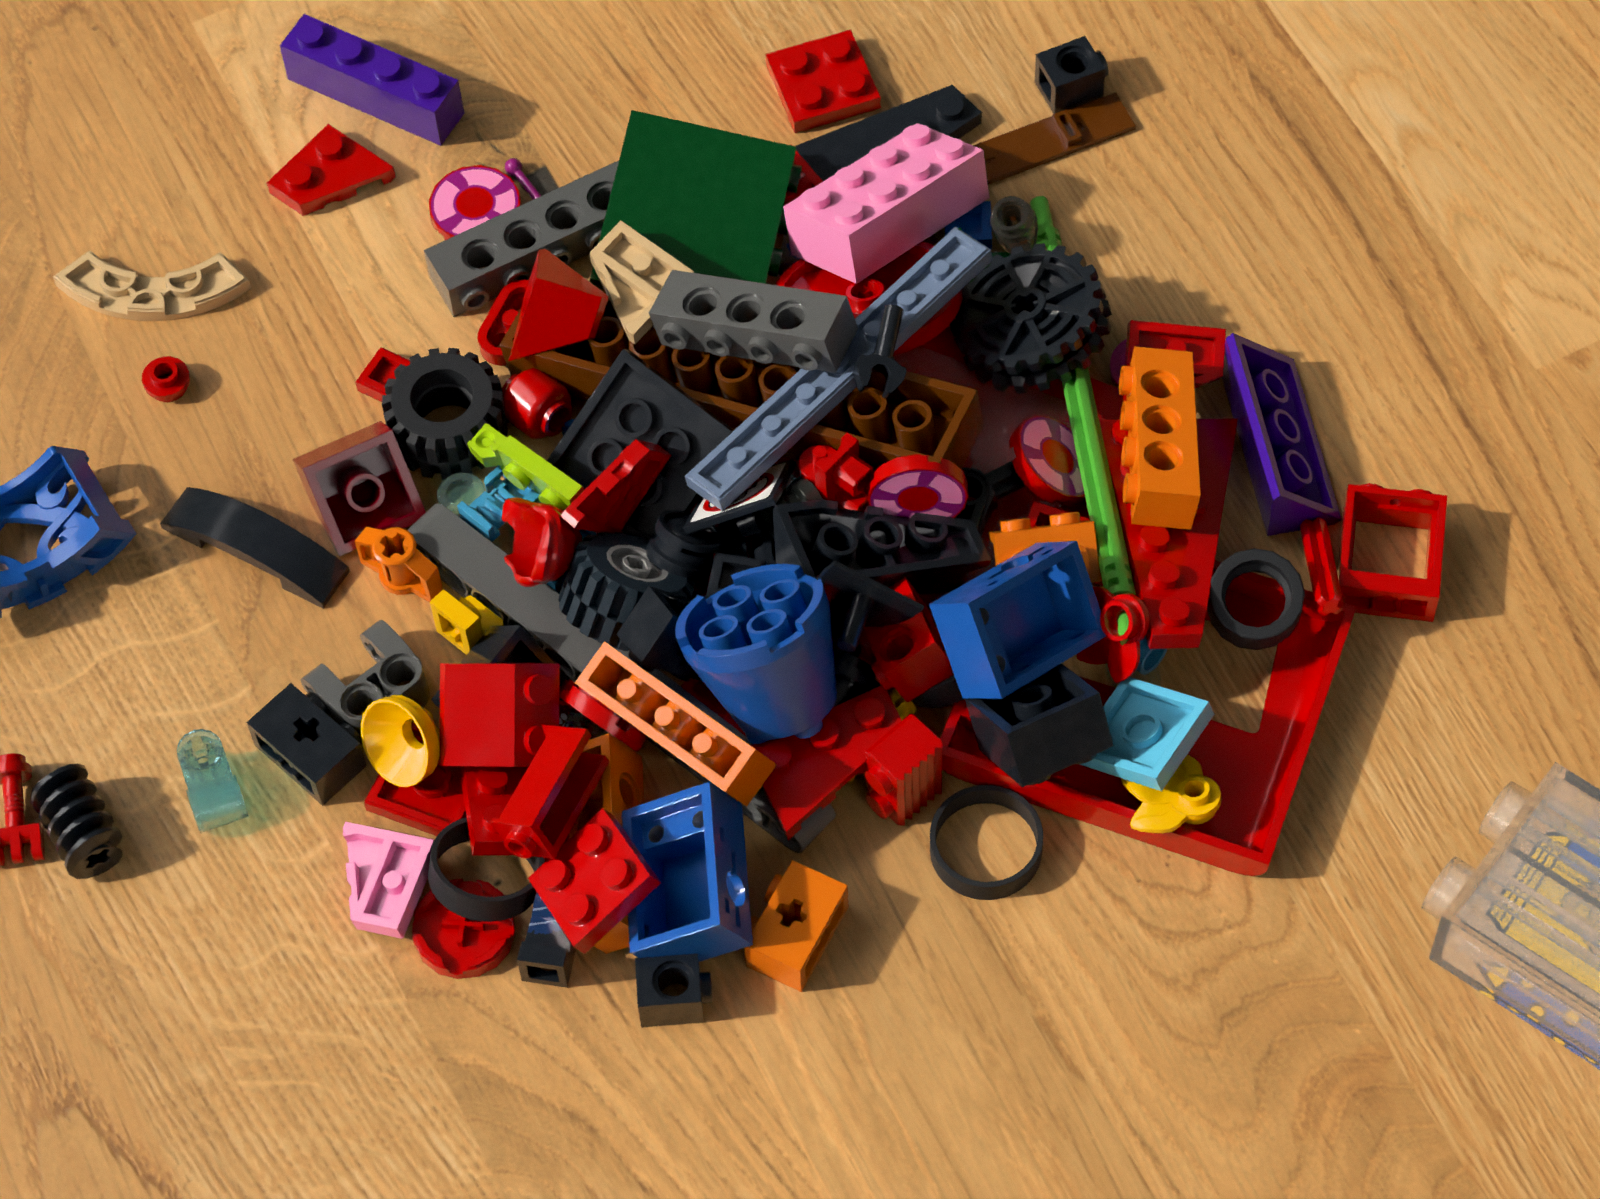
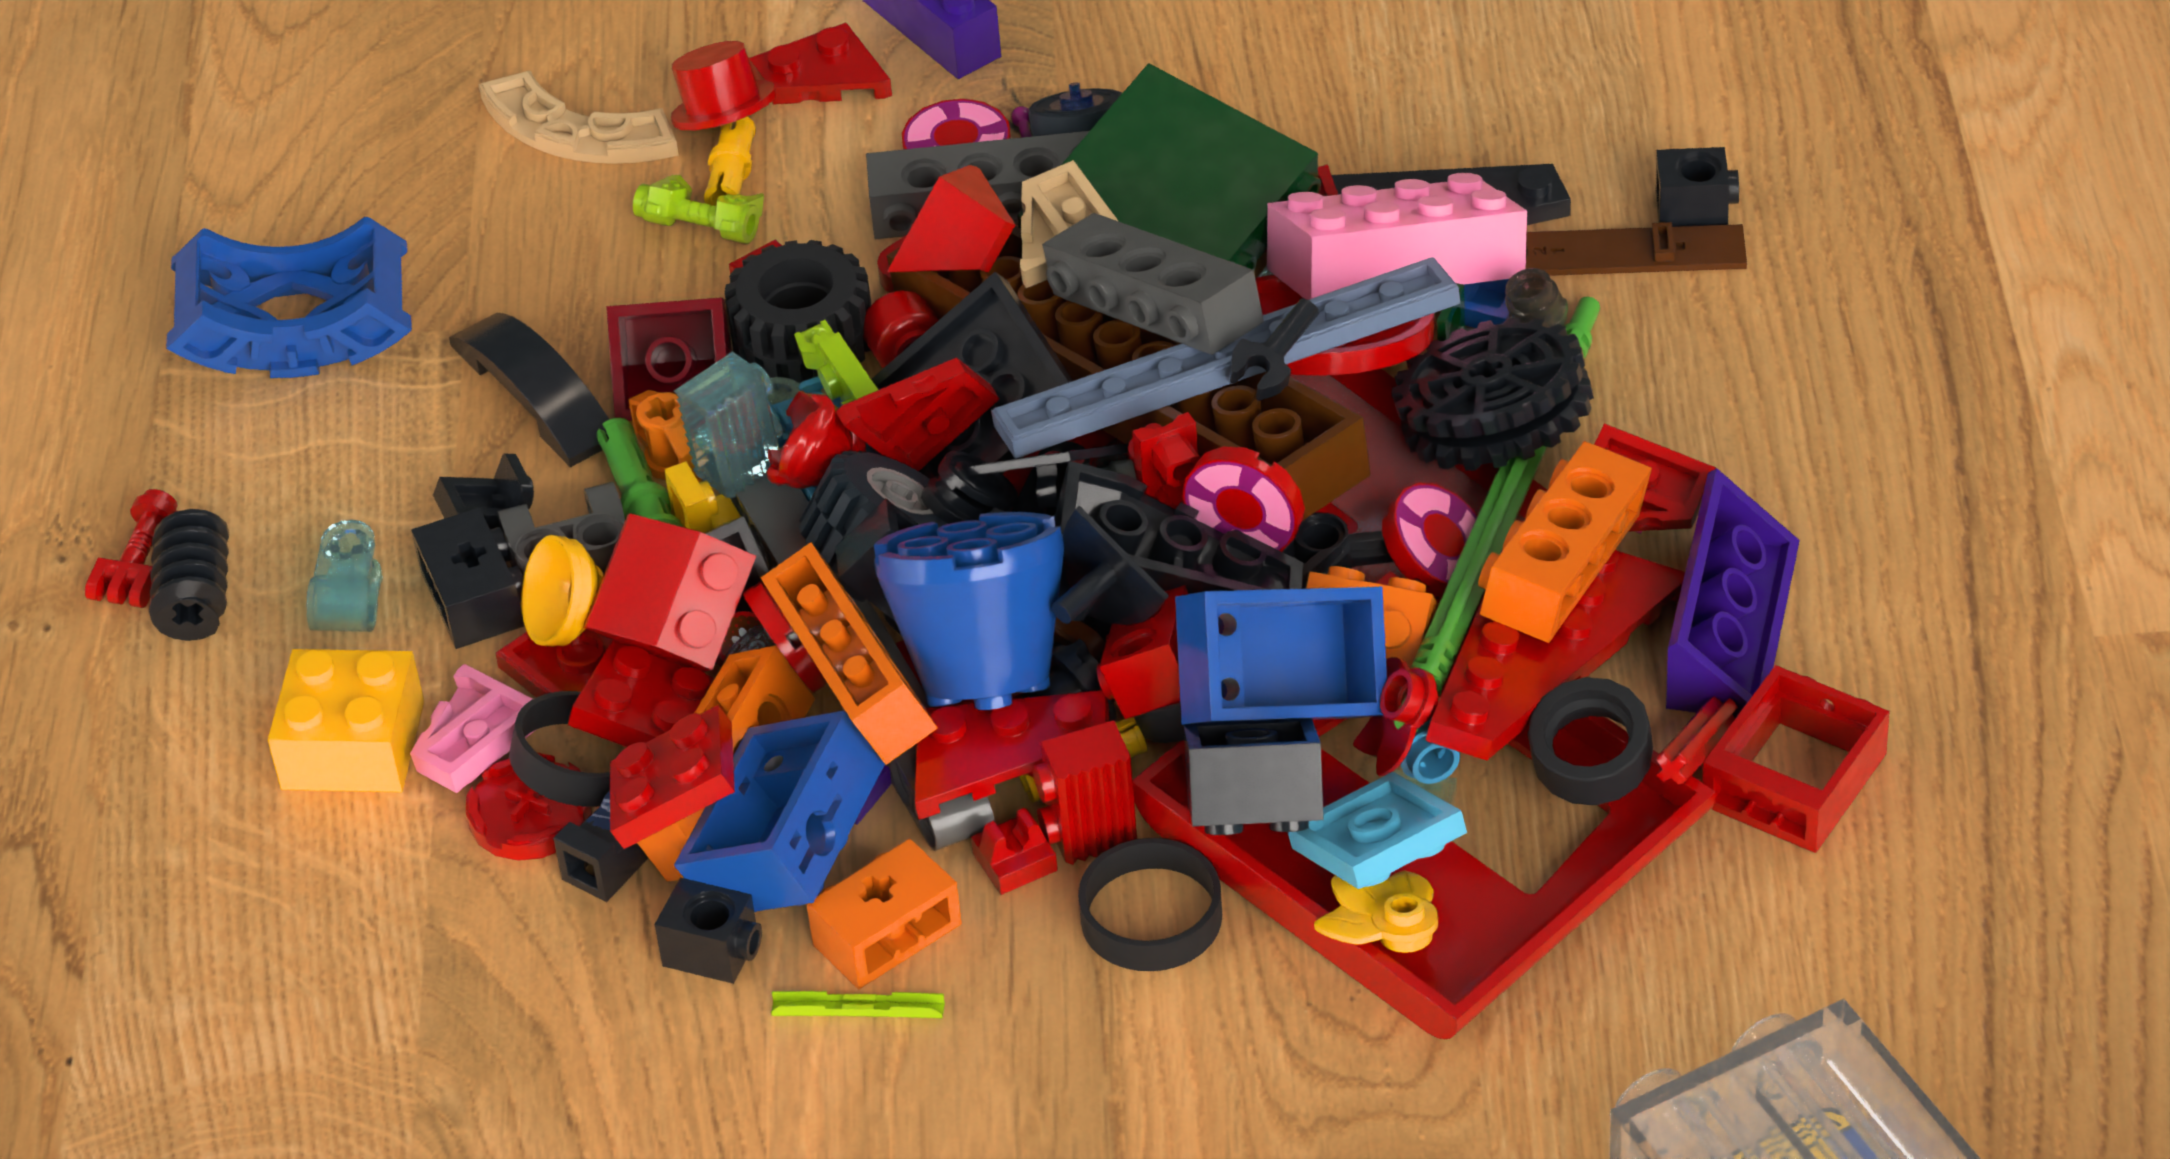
camera: 25 degrees right, 15 degrees down
(170, 388) = (536, 208): red plate -> none
(265, 224) = (717, 87): none -> red piece
(274, 339) = (670, 201): none -> lime piece
(280, 665) = (506, 490): none -> black bracket
(283, 909) = (346, 720): none -> yellow brick
(303, 286) = (730, 160): none -> yellow pin
(410, 624) = (632, 473): none -> bright green pin
(470, 548) = (729, 423): none -> clear light blue brick
(550, 794) = (670, 676): red window -> none
(566, 155) = (1070, 110): none -> black wheel
(810, 1006) = (869, 1005): none -> lime piece
(823, 81) = (1410, 125): red plate -> none
(860, 833) = (1014, 852): none -> red tile

